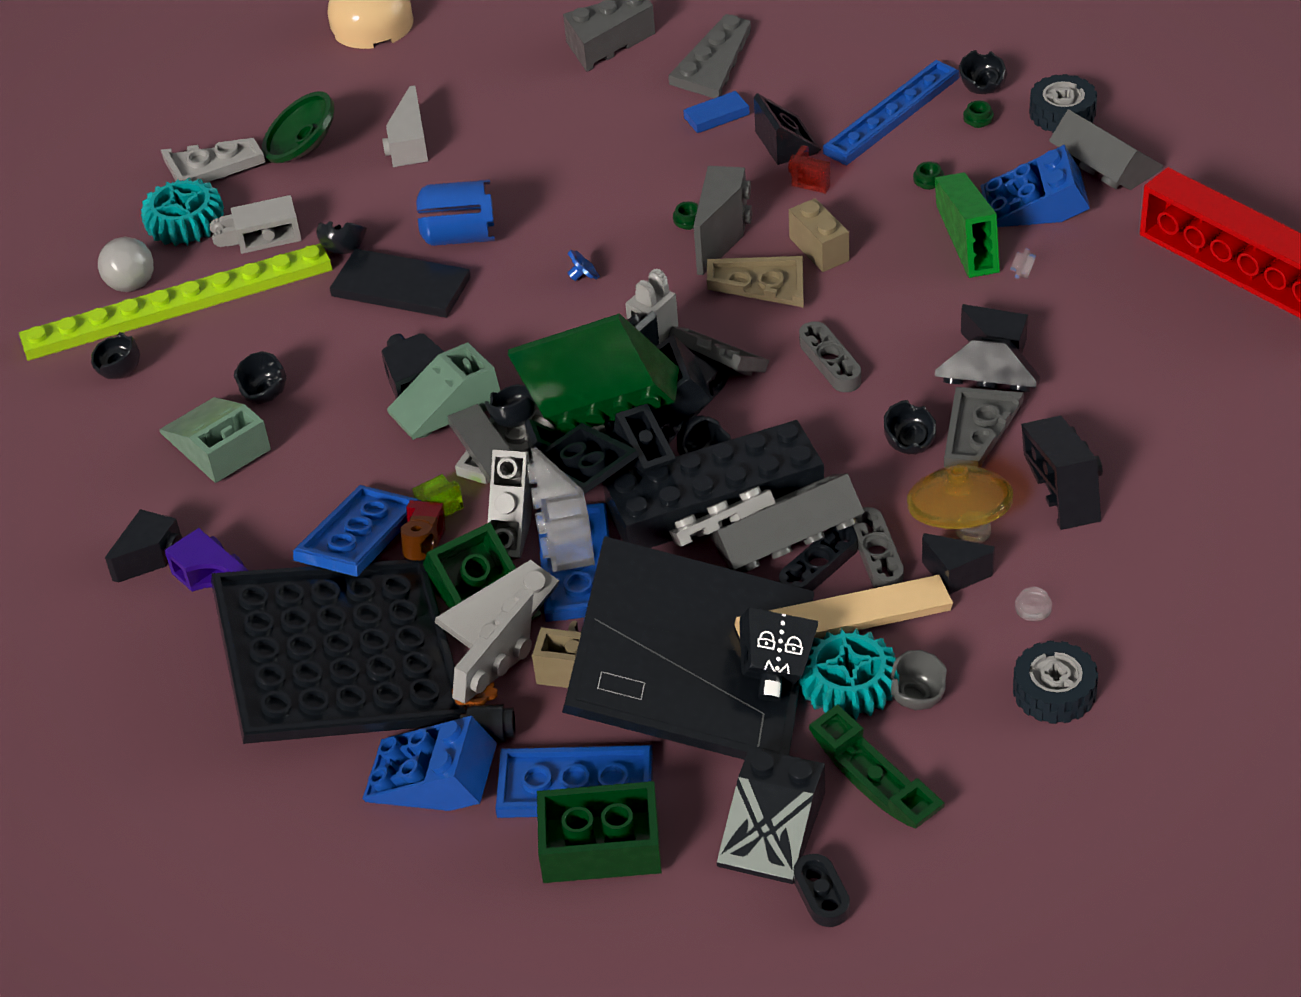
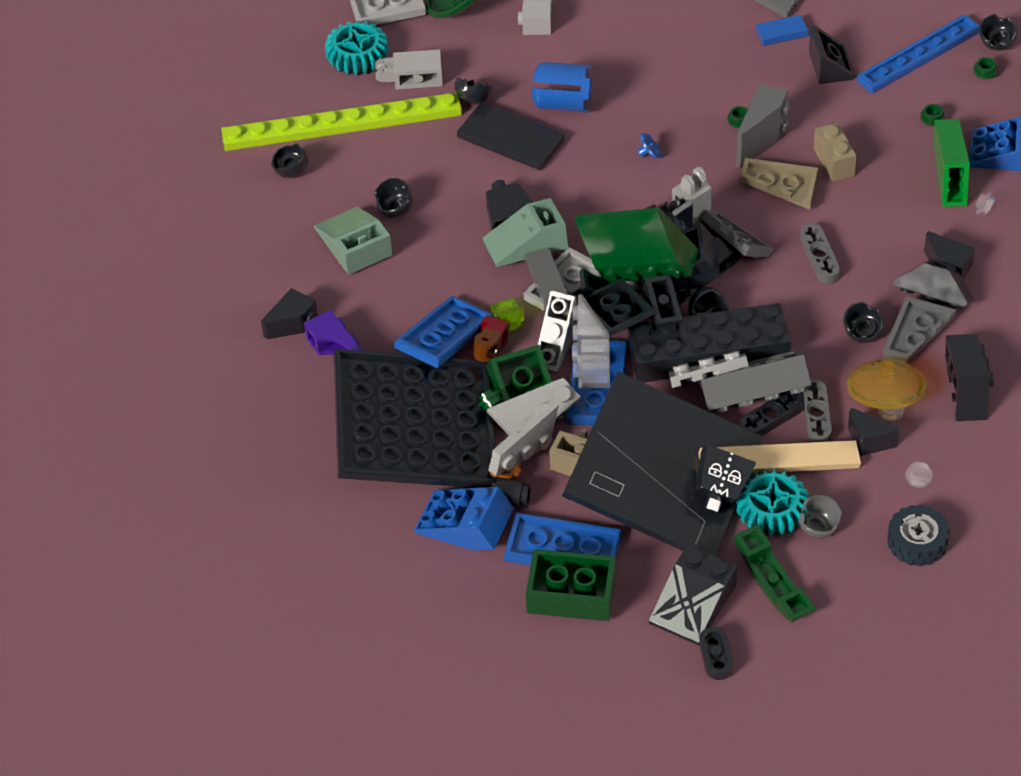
camera: 10 degrees right, 5 degrees up
(125, 264) = (307, 86): light grey piece -> none
(436, 604) = (490, 398): none -> dark green plate
(511, 406) = (572, 254): black hair -> none
(809, 172) = (840, 96): clear red bracket -> none

